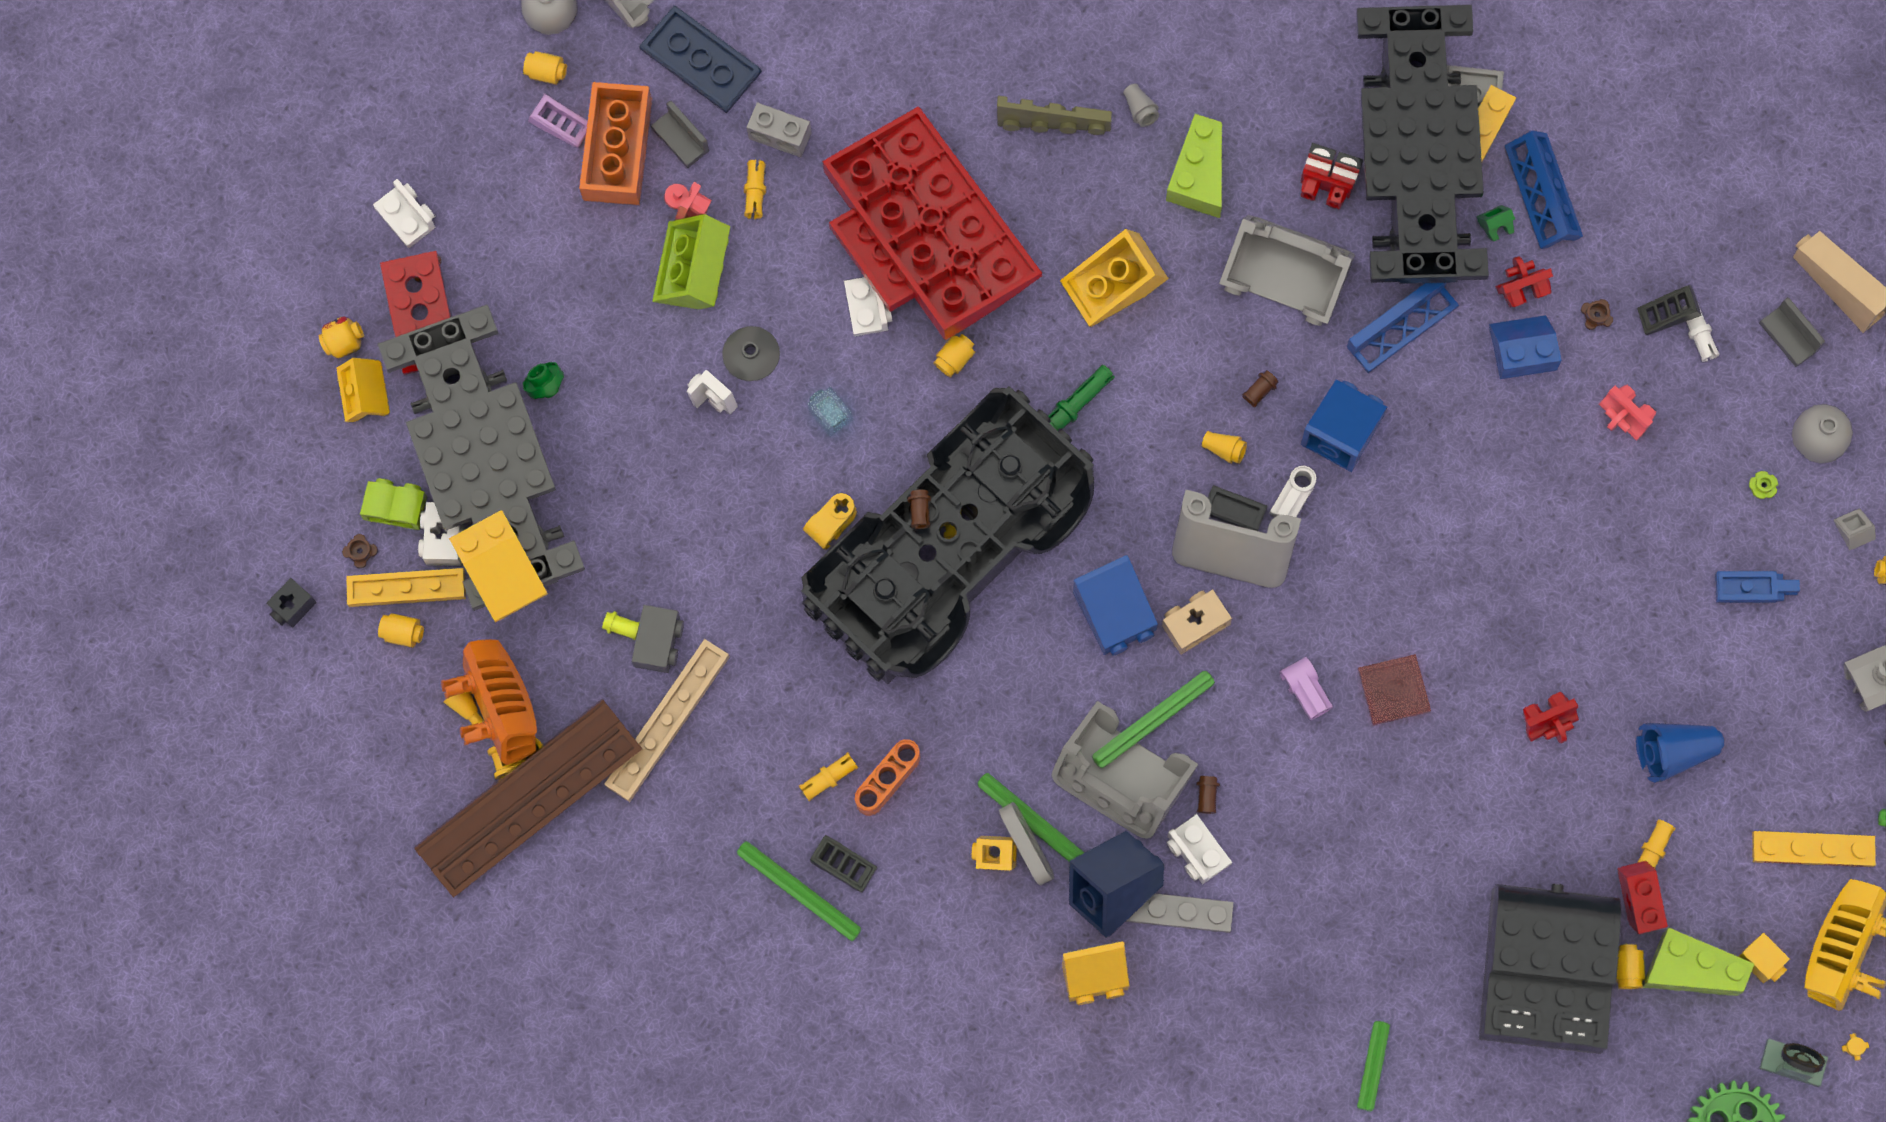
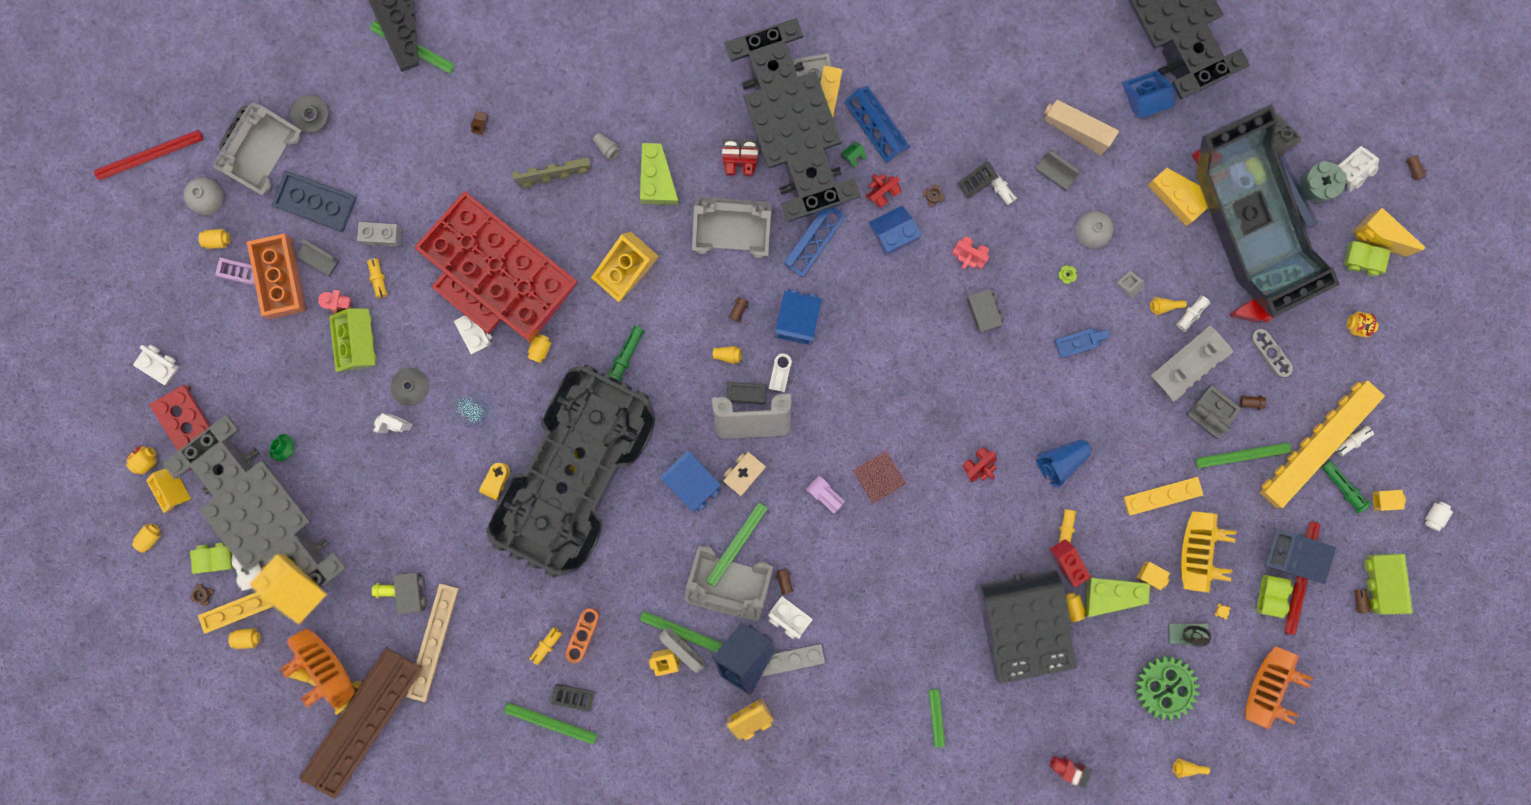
camera: 25 degrees left, 10 degrees up
(295, 594) = (174, 642): black brick -> none
(311, 446) = (146, 537): none -> yellow brick
(919, 508) = (547, 463): reddish brown pin -> none
(969, 20) = (479, 122): none -> reddish brown piece
(1622, 499) = (984, 311): none -> brick

